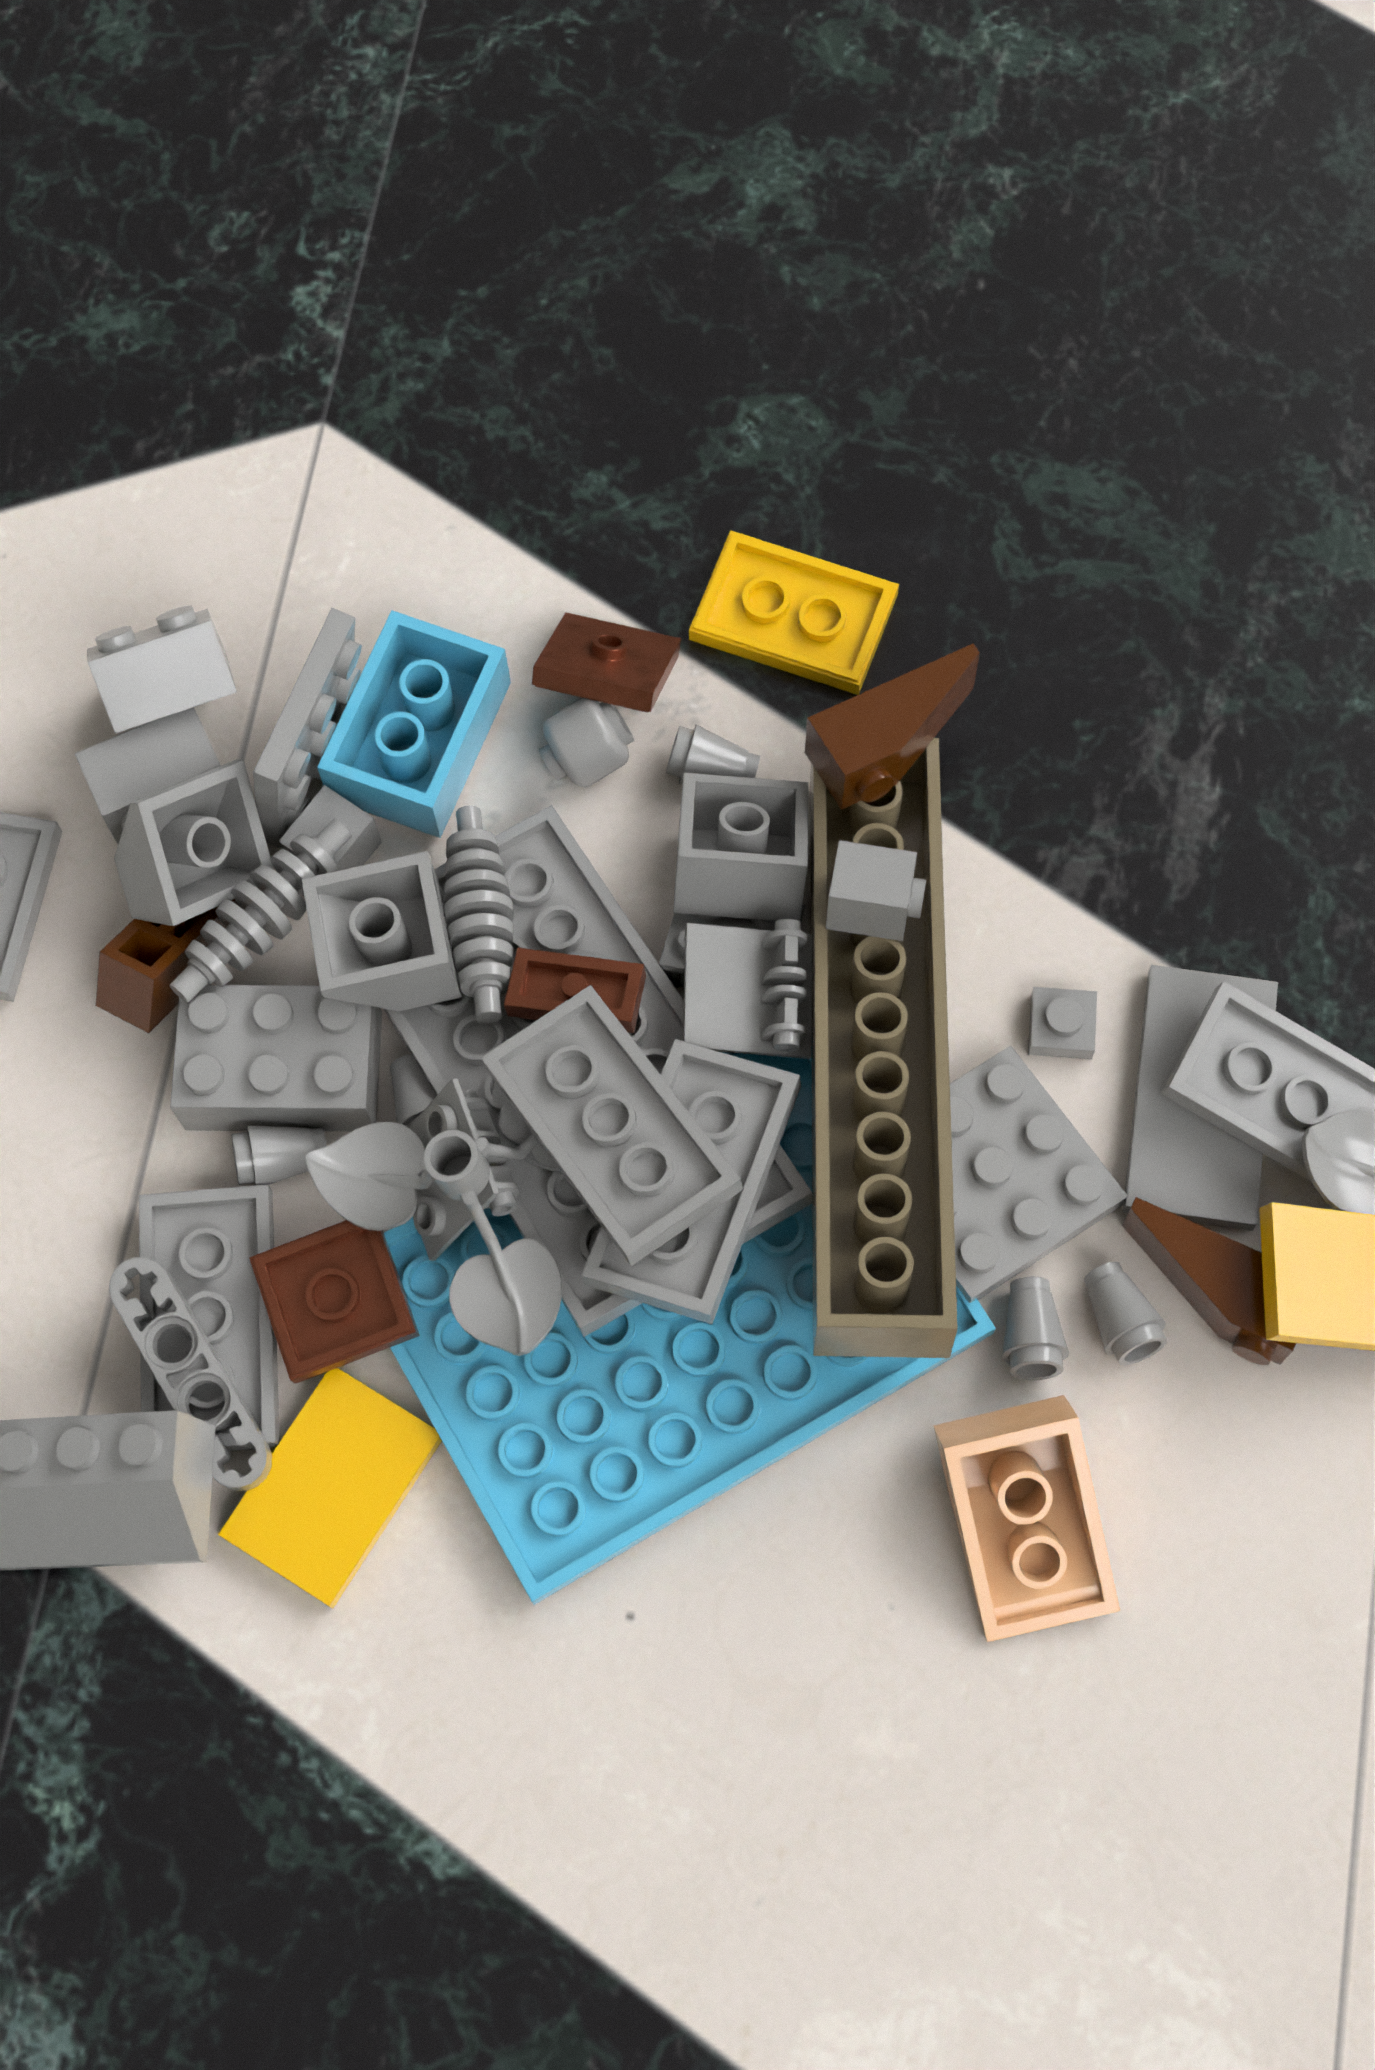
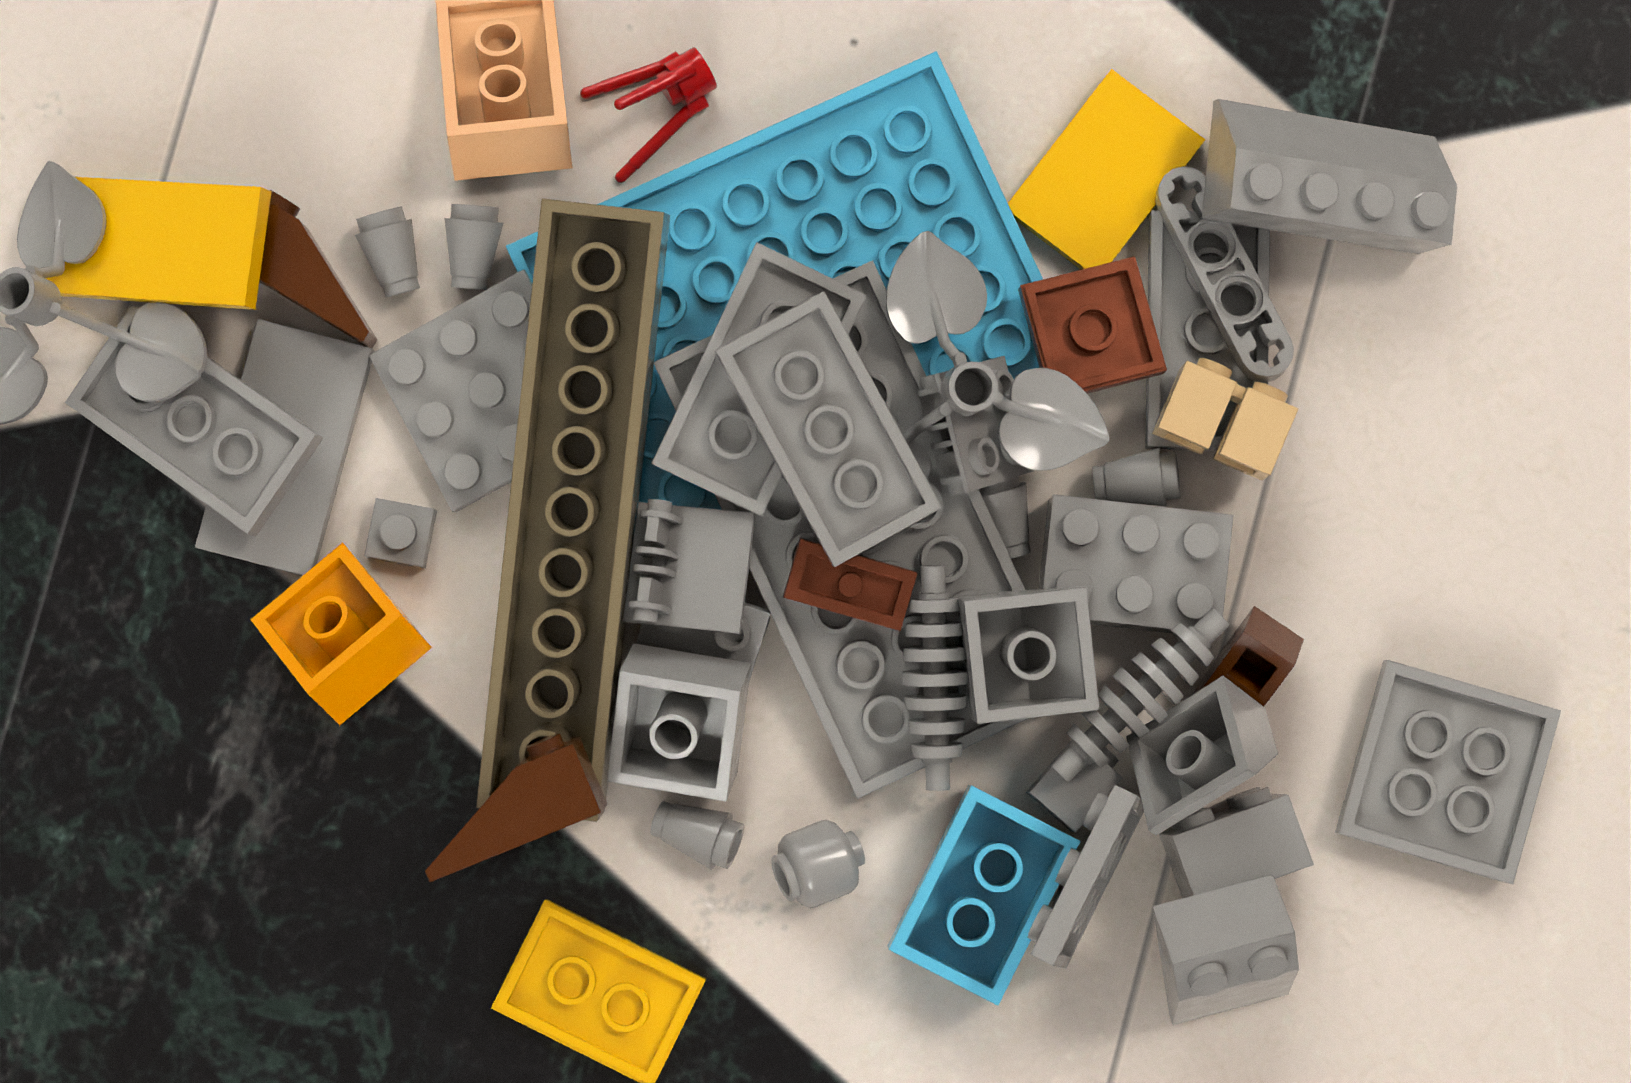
camera: 175 degrees left, 15 degrees up
(198, 1213) = (1255, 426): none -> tan piece
(606, 662) = (789, 943): copper plate -> none
(821, 1539) = (680, 79): none -> red plant
(873, 891) = (559, 629): light grey brick -> none
(1108, 906) = (340, 634): none -> light orange slope

